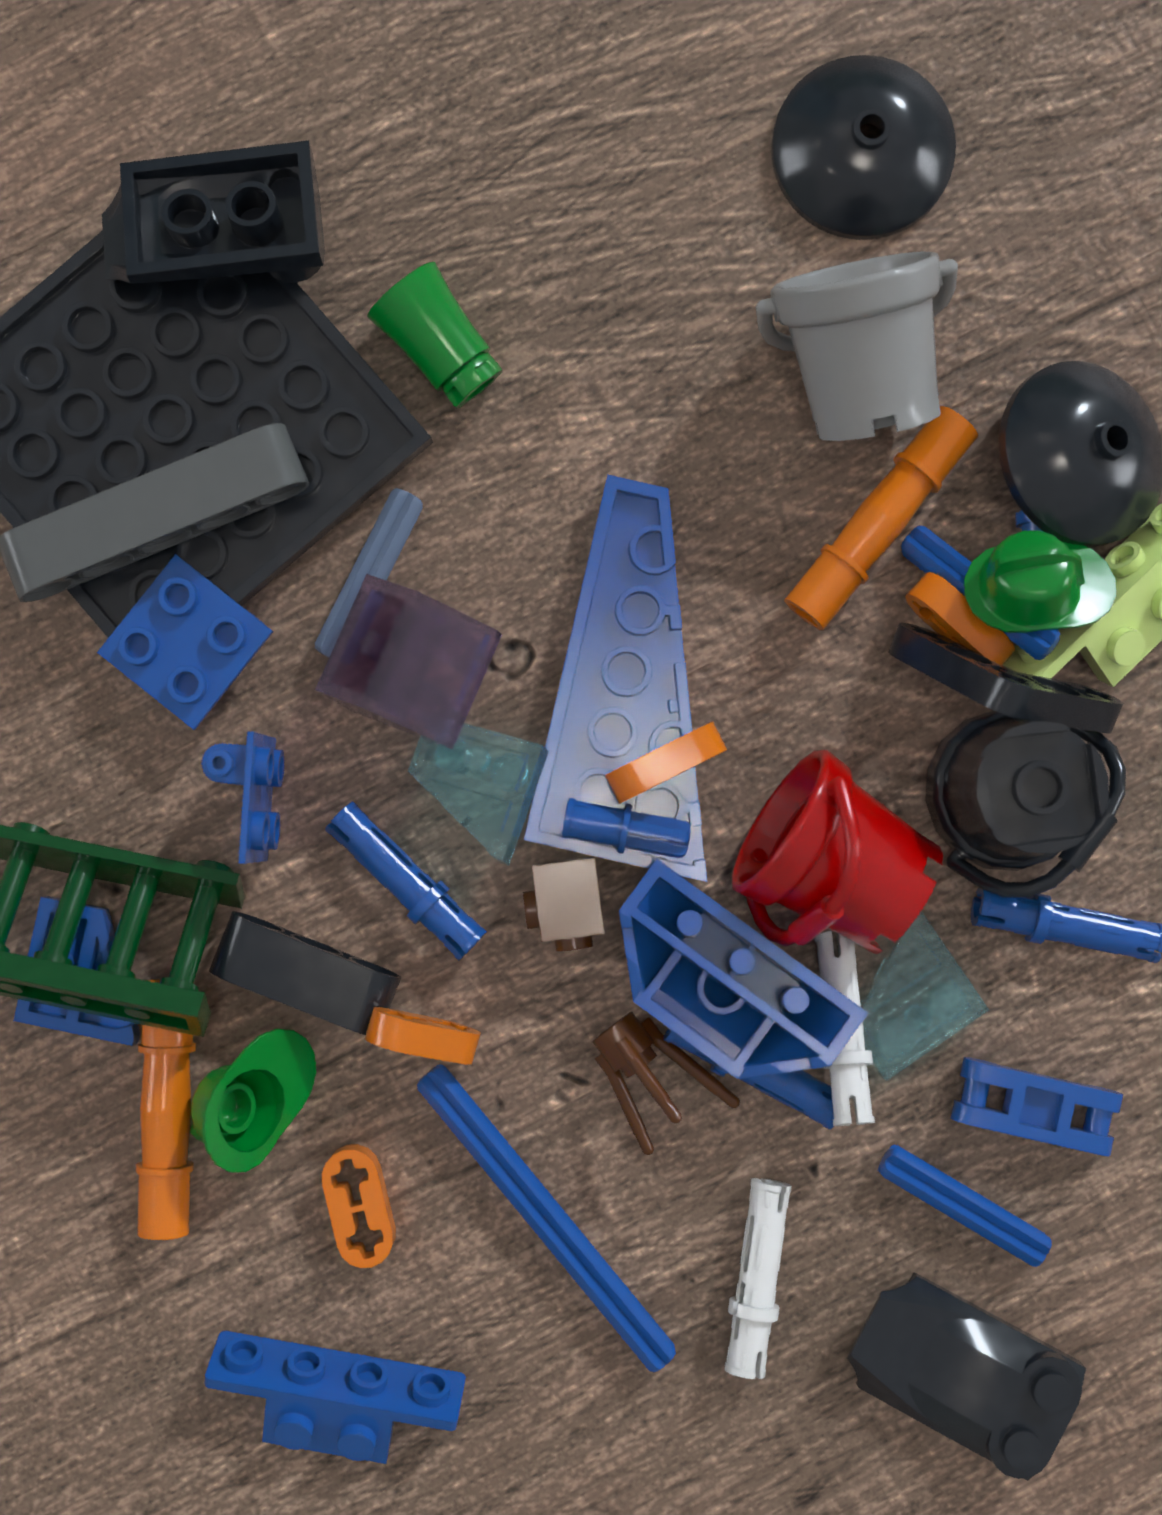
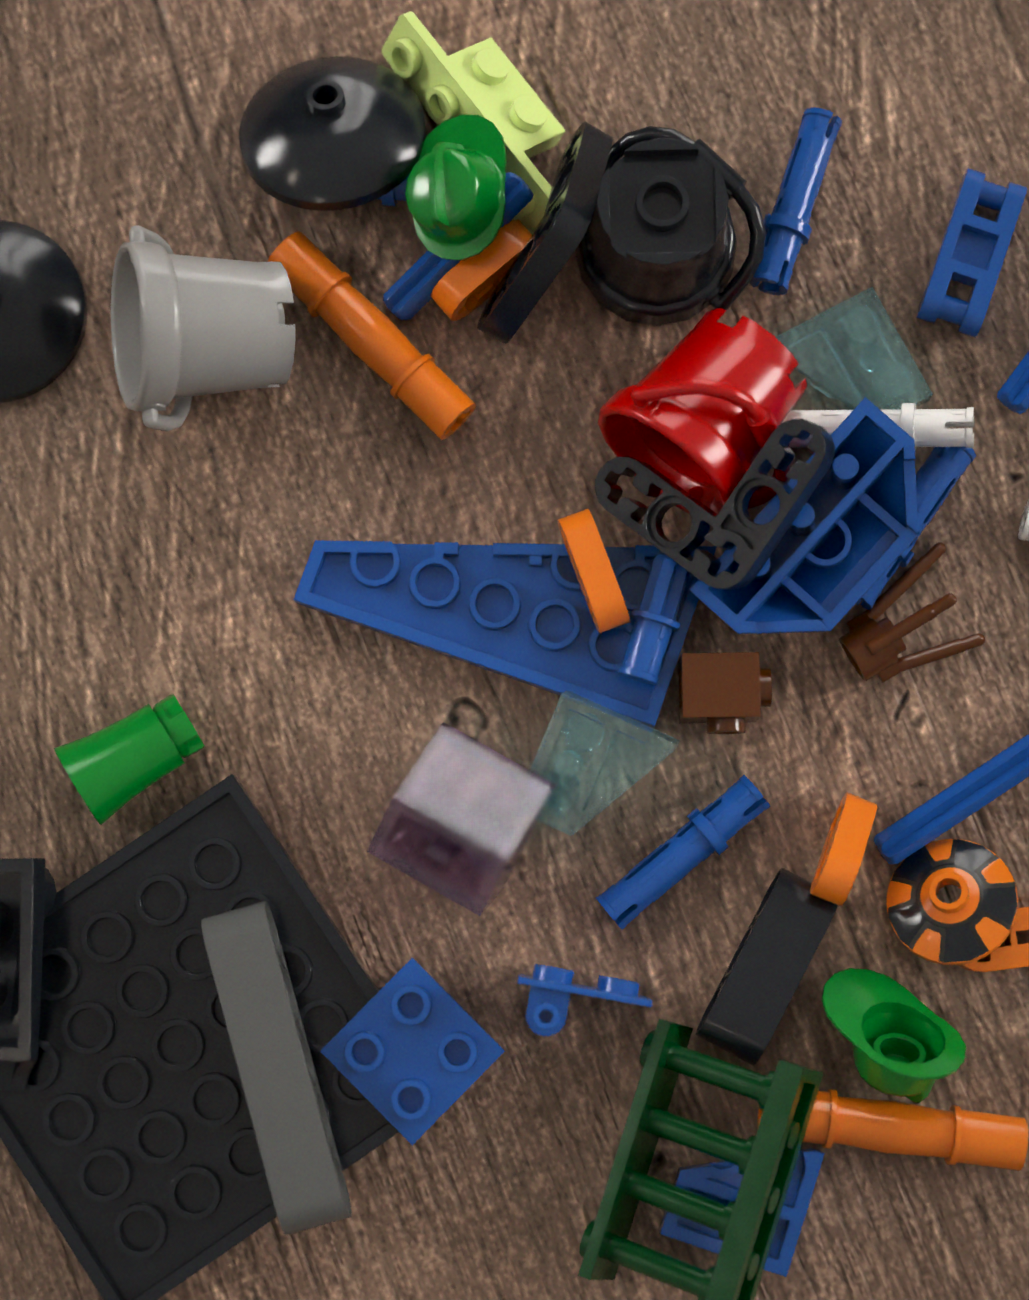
camera: 75 degrees left, 5 degrees down
(360, 1164) = (956, 930): none -> dish
(374, 559) = (351, 849): sand blue axle -> none
(723, 894) = (733, 523): none -> black beam

